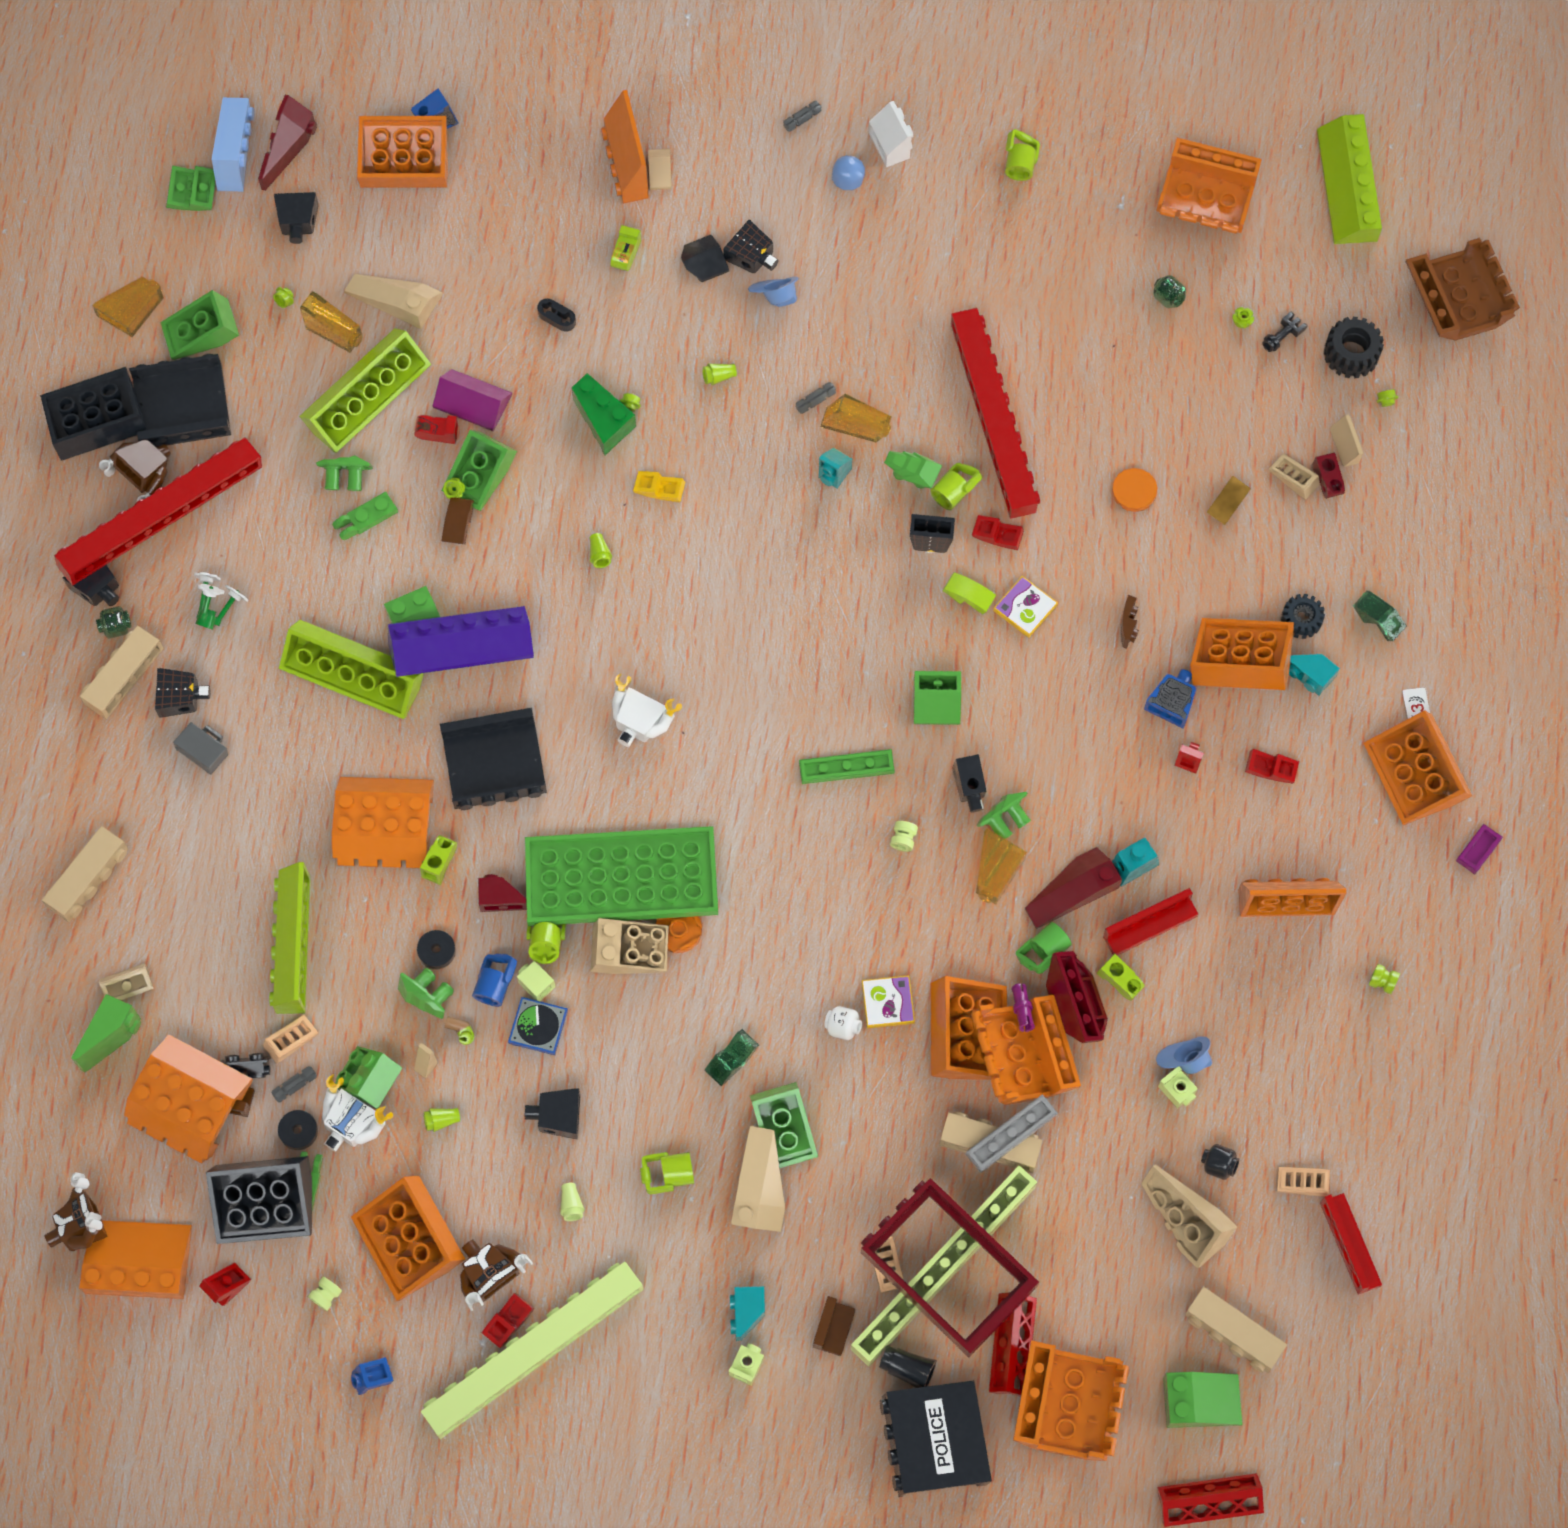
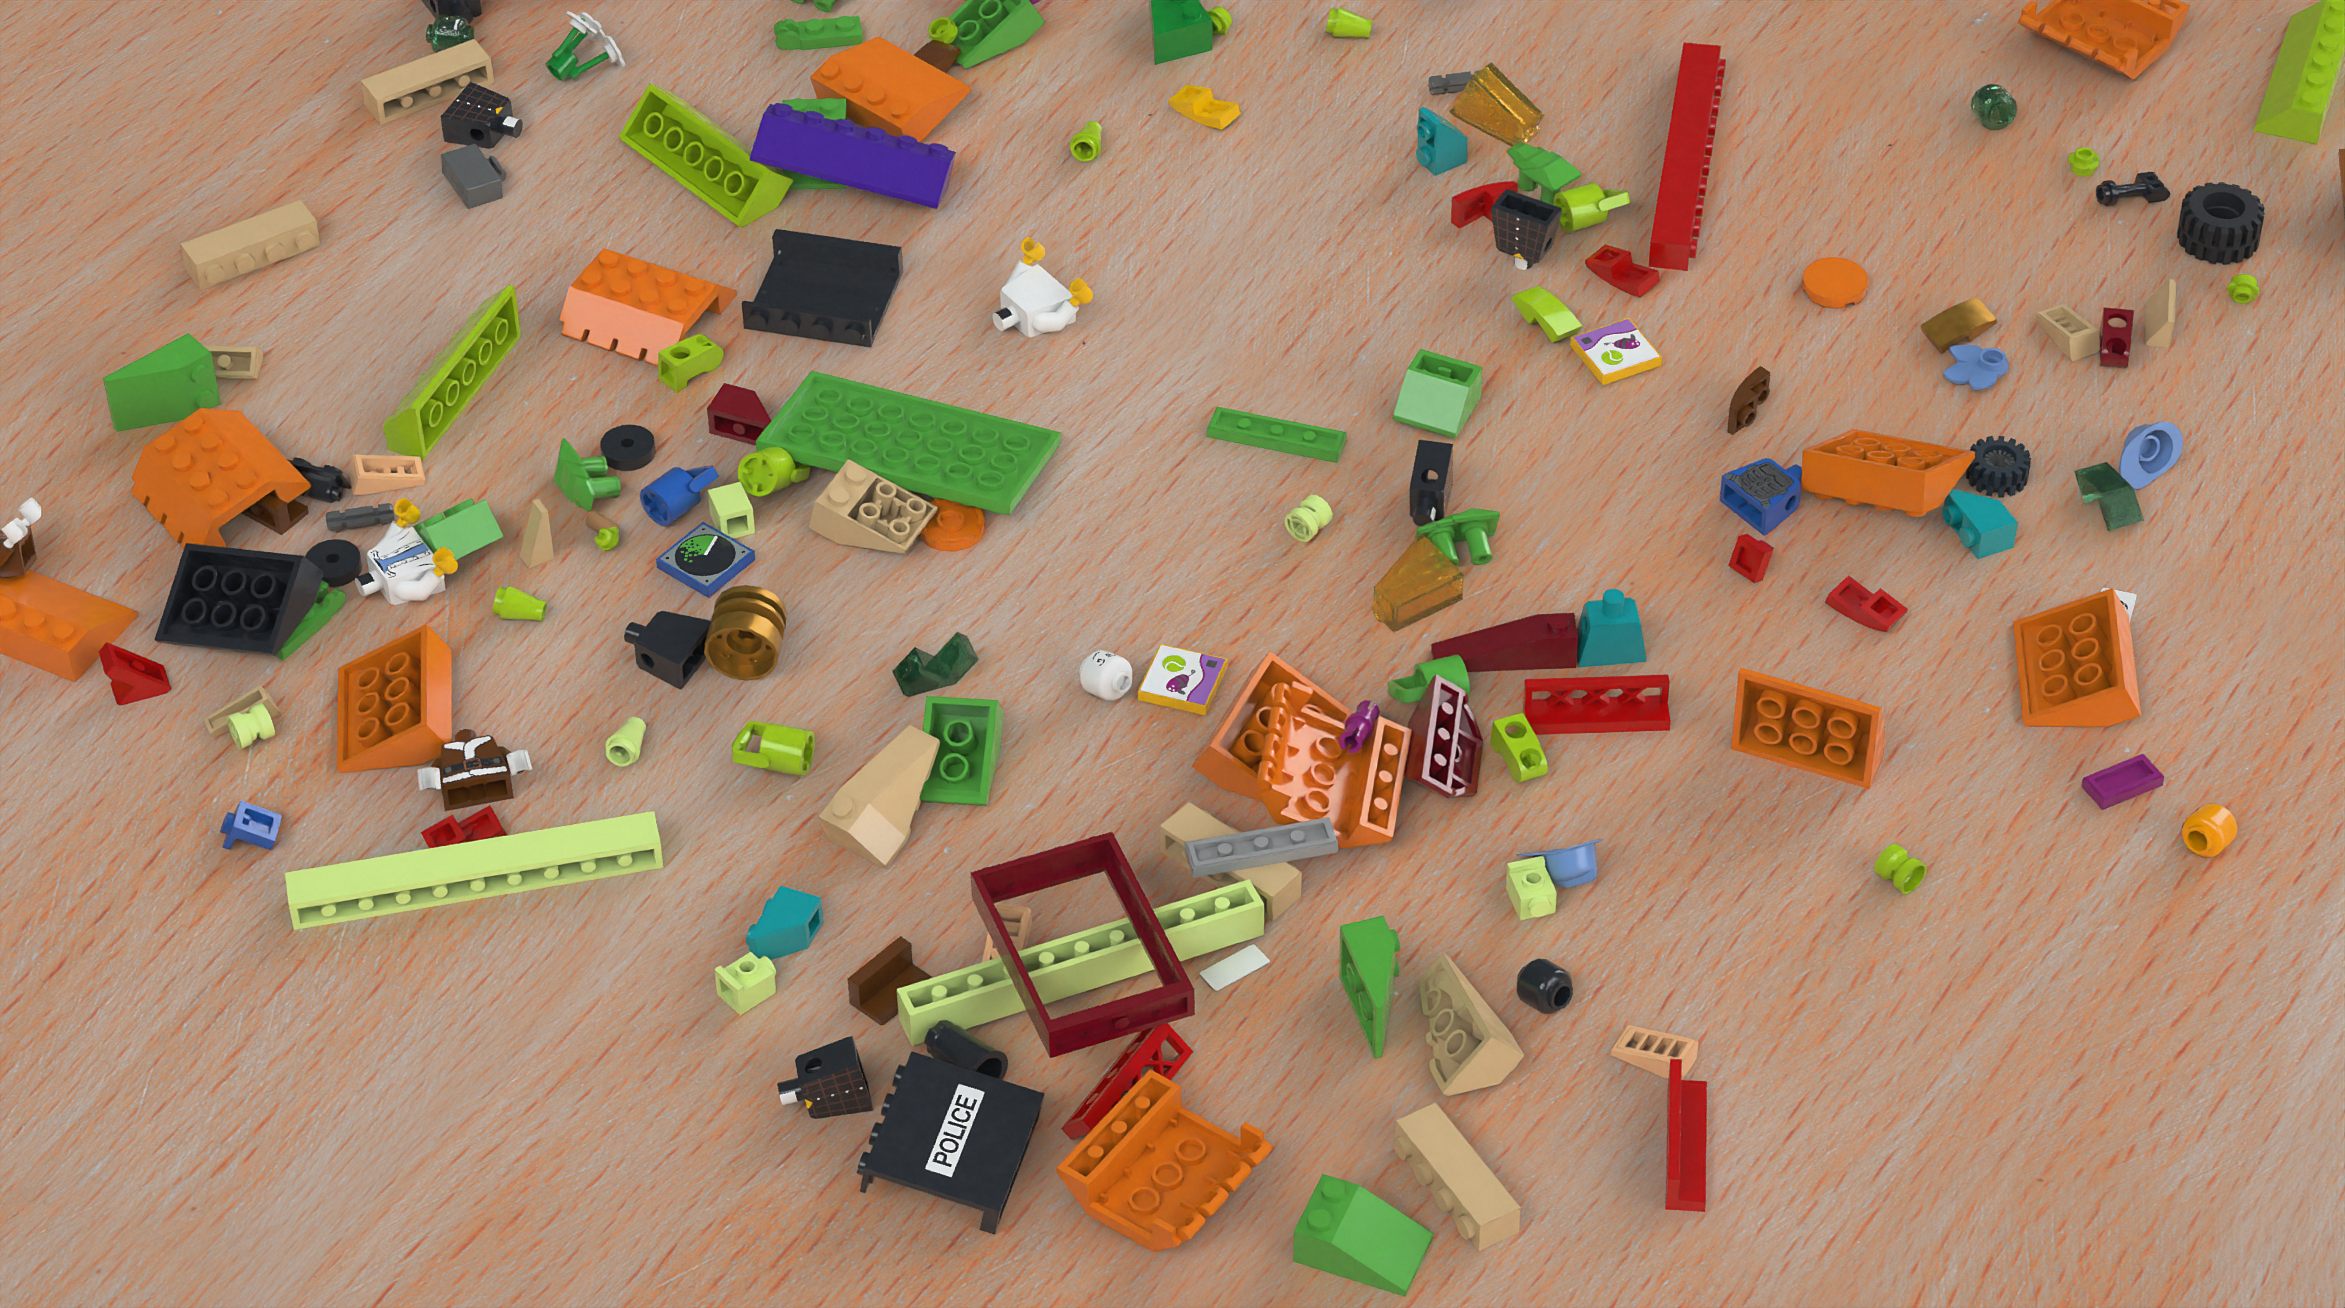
camera: 25 degrees right, 25 degrees down
(309, 1281) = (217, 721): none -> tan piece
(446, 558) = (889, 88): none -> orange slope
(606, 1089) = (746, 632): none -> pearl gold wheel
(849, 1421) = (829, 1081): none -> black torso
(888, 506) = (1477, 202): none -> red slope
(1028, 1219) = (1234, 967): none -> white sticker
(1121, 1204) = (1368, 975): none -> bright green slope
(1250, 534) = (1976, 366): none -> medium blue plate
(1388, 570) = (2150, 452): none -> medium blue piece
(1547, 872) = (2209, 830): none -> light orange head

